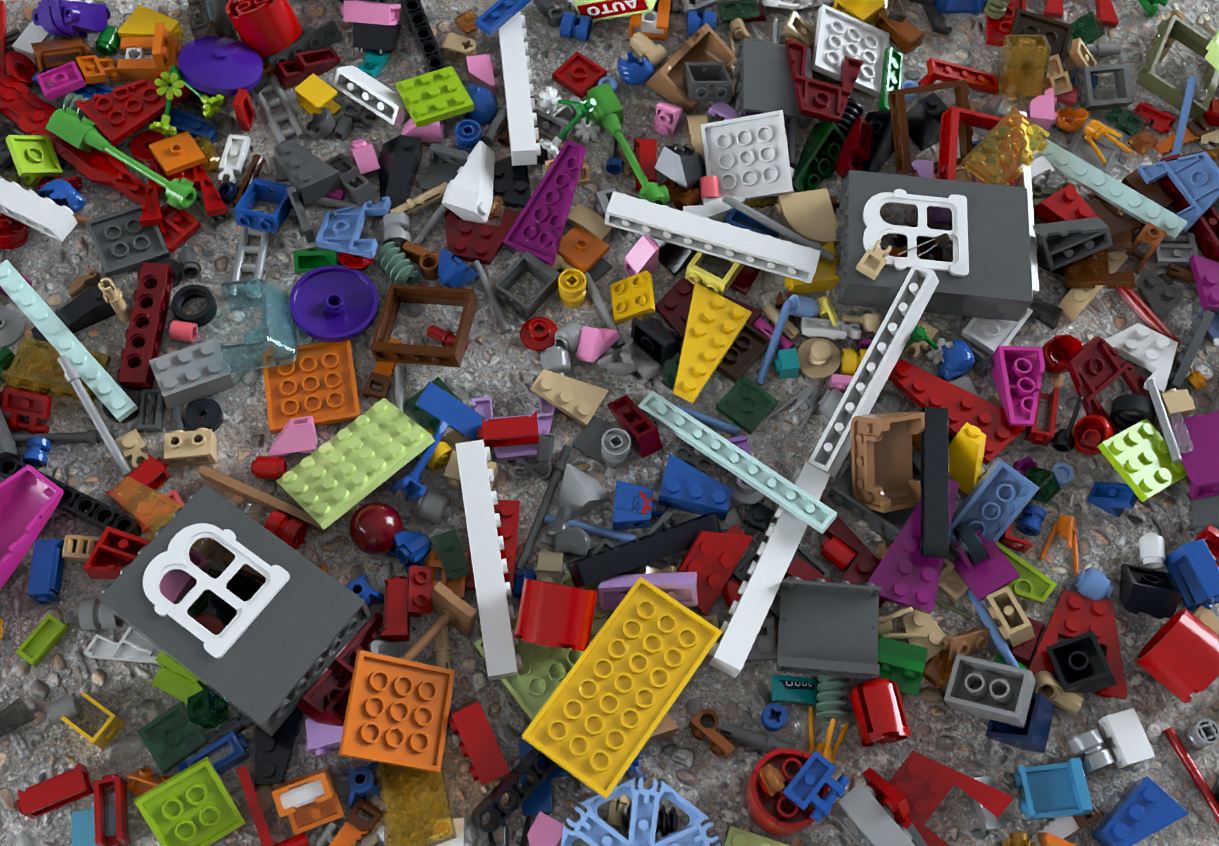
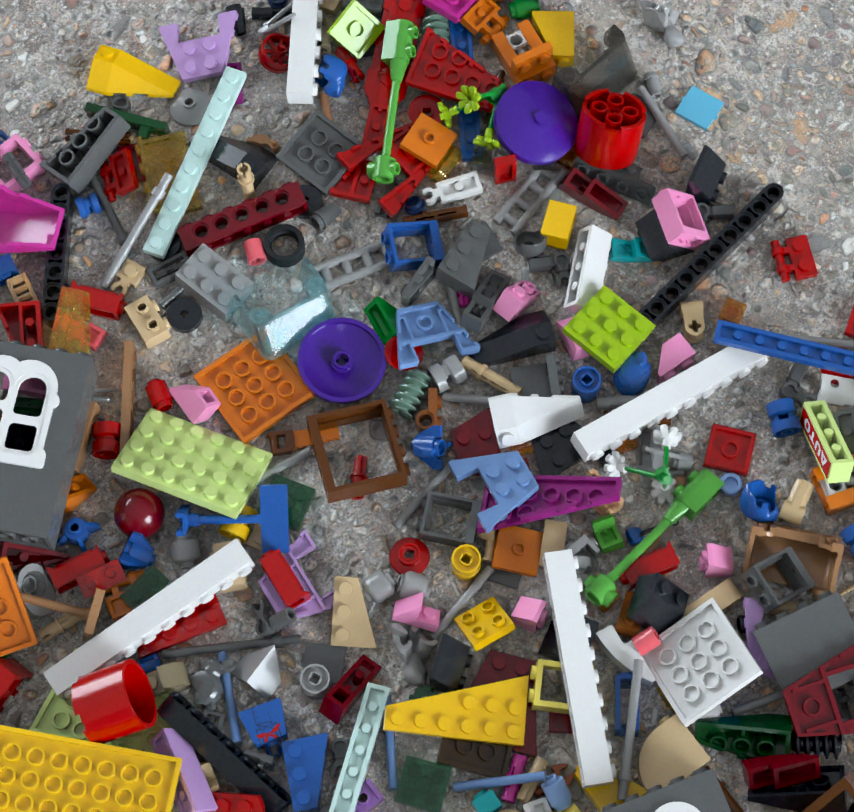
camera: 70 degrees right, 5 degrees up
(518, 224) = (505, 478): none -> medium blue wing
(603, 180) = (607, 534): none -> bright green bracket

